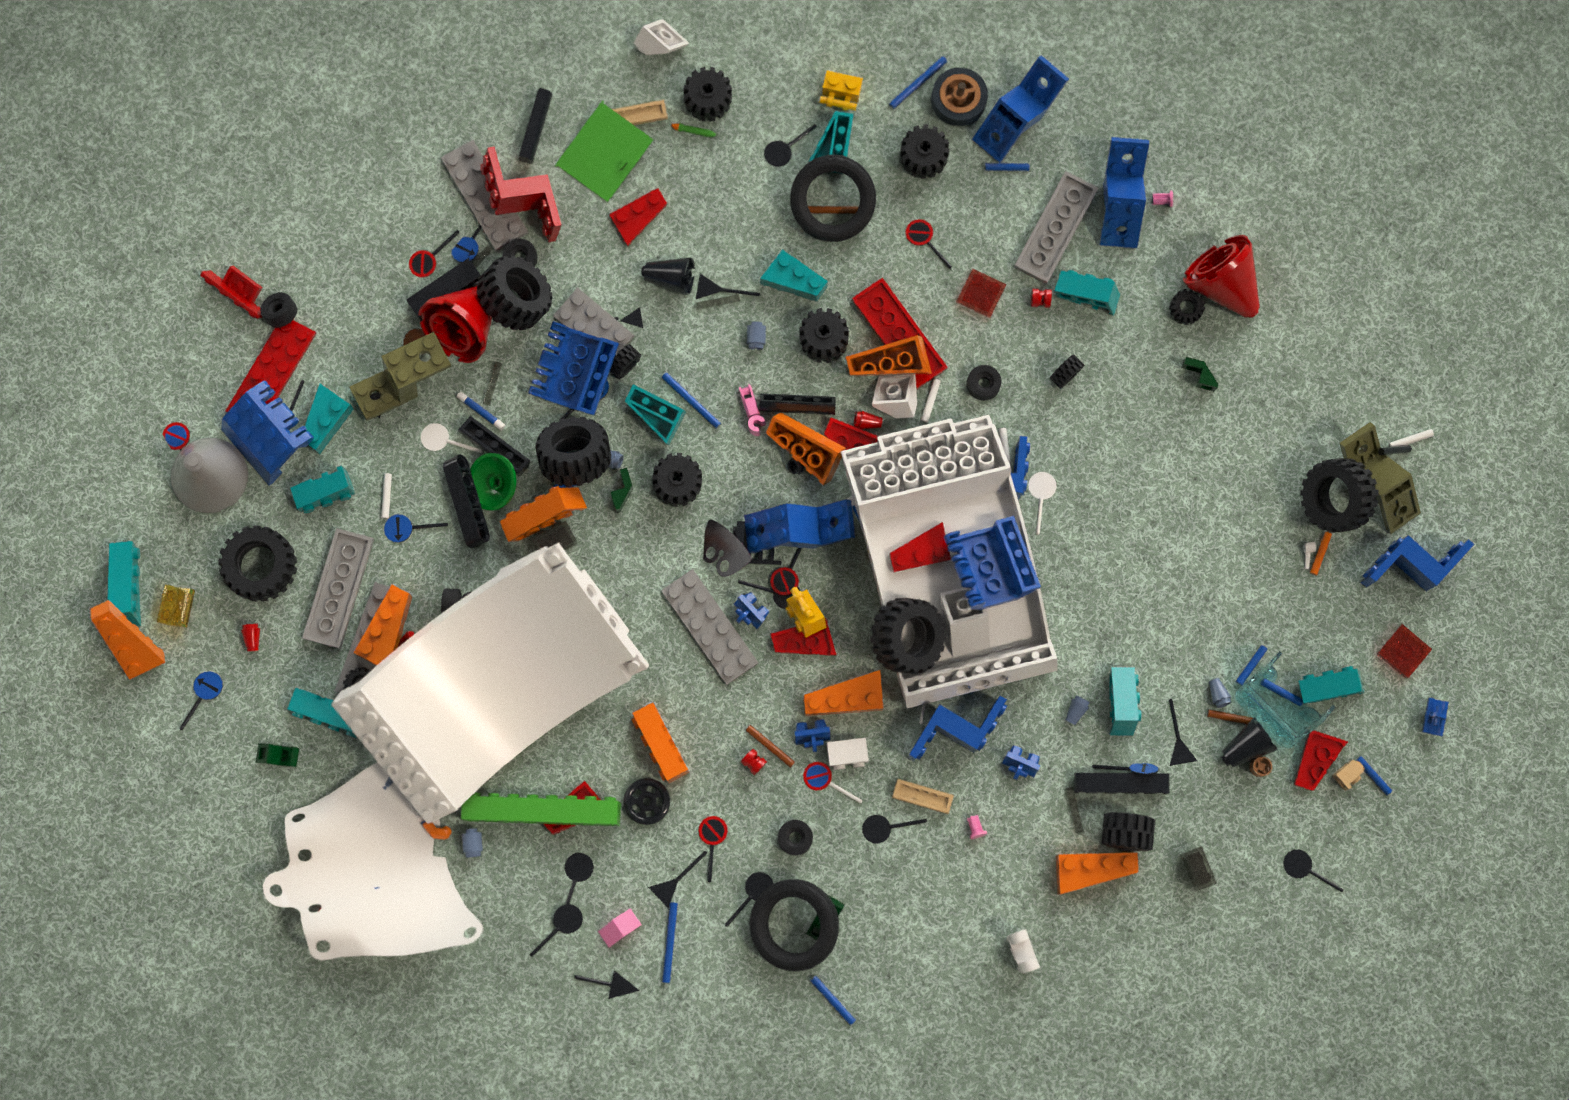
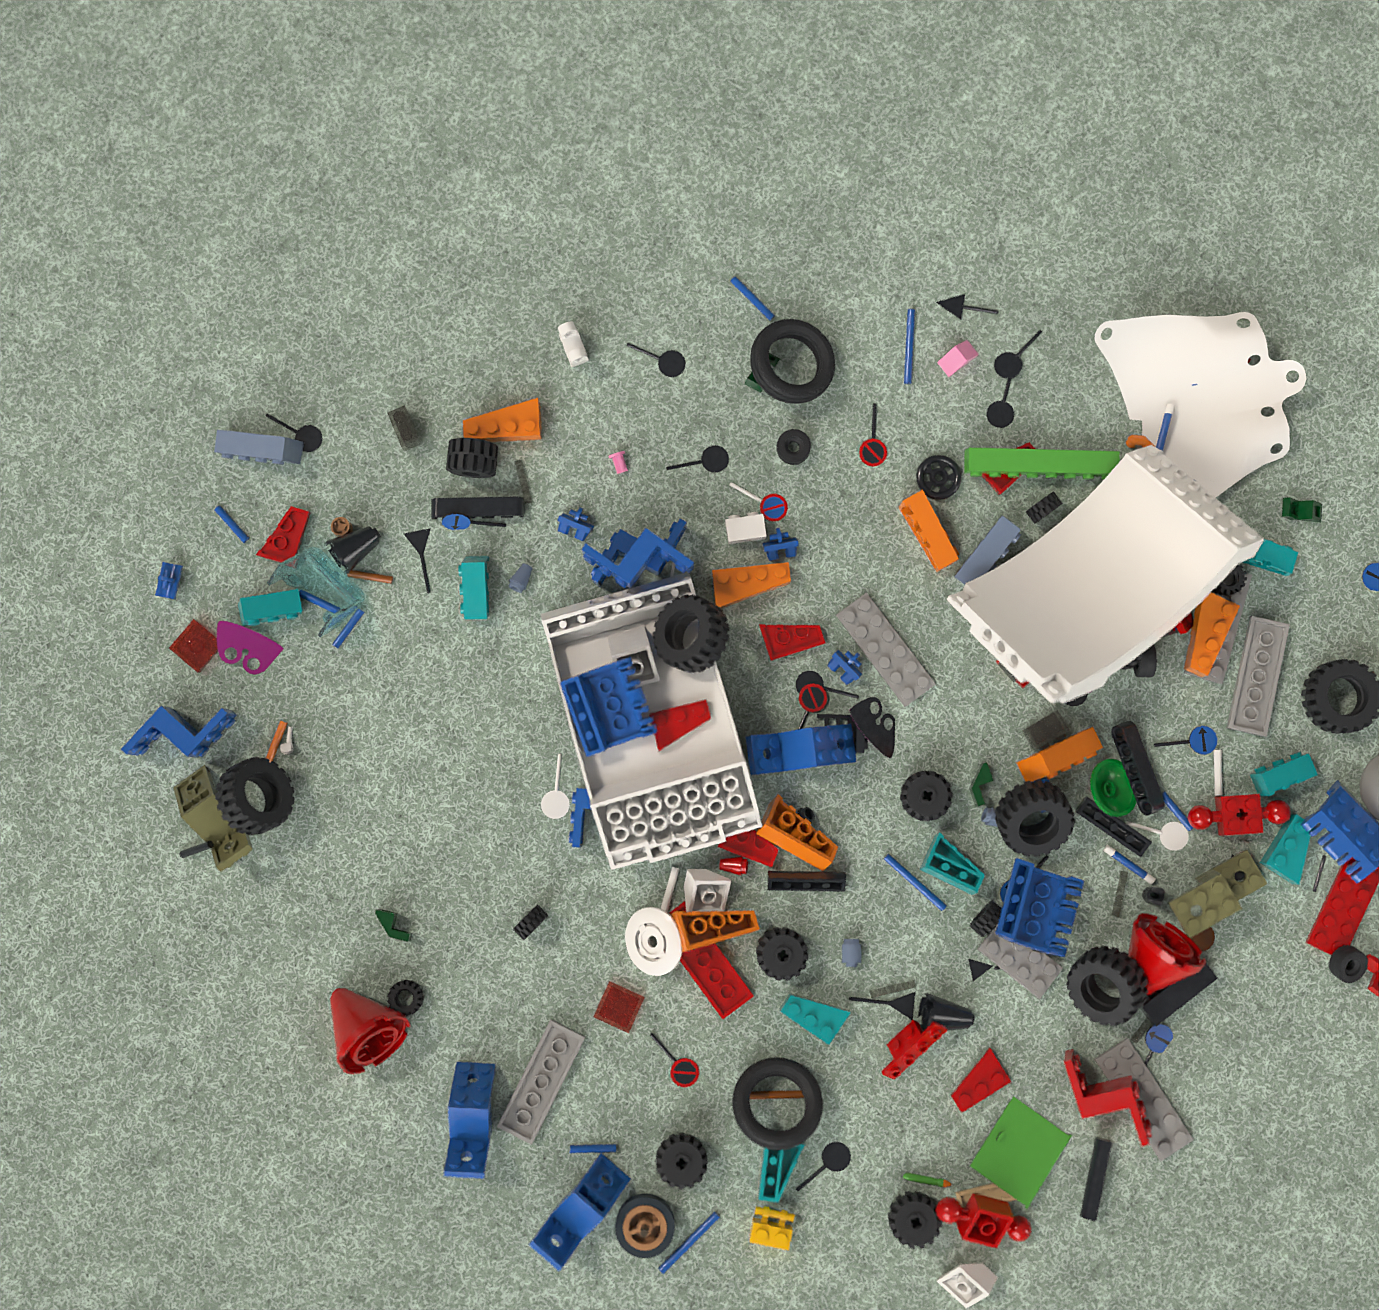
camera: 175 degrees left, 5 degrees up
(251, 636) = (1339, 625): red cone -> none
(379, 461) = (1251, 817): none -> red brick
(412, 841) = (1164, 427): none -> blue bar
(423, 262) = (1201, 1022): piece -> none
(431, 461) = (1176, 811): none -> blue piece
(456, 378) = (1155, 901): none -> black hinge
(472, 843) = (1105, 431): sand blue brick -> none
(524, 246) = (1100, 1043): black tyre -> none
(541, 763) = (1044, 507): none -> black tyre
(600, 720) = (989, 550): none -> sand blue wedge
(643, 90) = (984, 1220): none -> red brick
(665, 890) = (915, 395): black piece -> none
(704, 248) = (910, 1045): none -> red bracket
(751, 410) = (853, 874): bright pink piece -> none
(753, 761) = (836, 517): red wheel -> none
(754, 887) = (829, 400): black piece -> none
(770, 746) = (820, 534): dark orange bar -> none
(805, 612) = (791, 663): yellow brick -> none
(920, 933) = (669, 363): none -> black piece
(922, 796) = (671, 489): tan plate -> none
(946, 366) = (656, 923): none -> white piece
(961, 712) = (637, 559): none -> blue bracket
(979, 392) = (615, 920): black tyre -> none
(1004, 440) = (593, 839): white piece -> none
(1037, 300) = (556, 1002): red wheel -> none
(1088, 290) = (508, 1011): teal wedge -> none
(1163, 198) = (428, 1116): bright pink piece -> none
(1219, 693) = (380, 598): sand blue cone -> none
(1349, 774) = (255, 523): tan brick -> none
(1349, 852) = (258, 446): none -> sand blue wedge
(1359, 657) = (239, 637): none -> magenta piece
(1413, 438) = (178, 864): white piece -> none

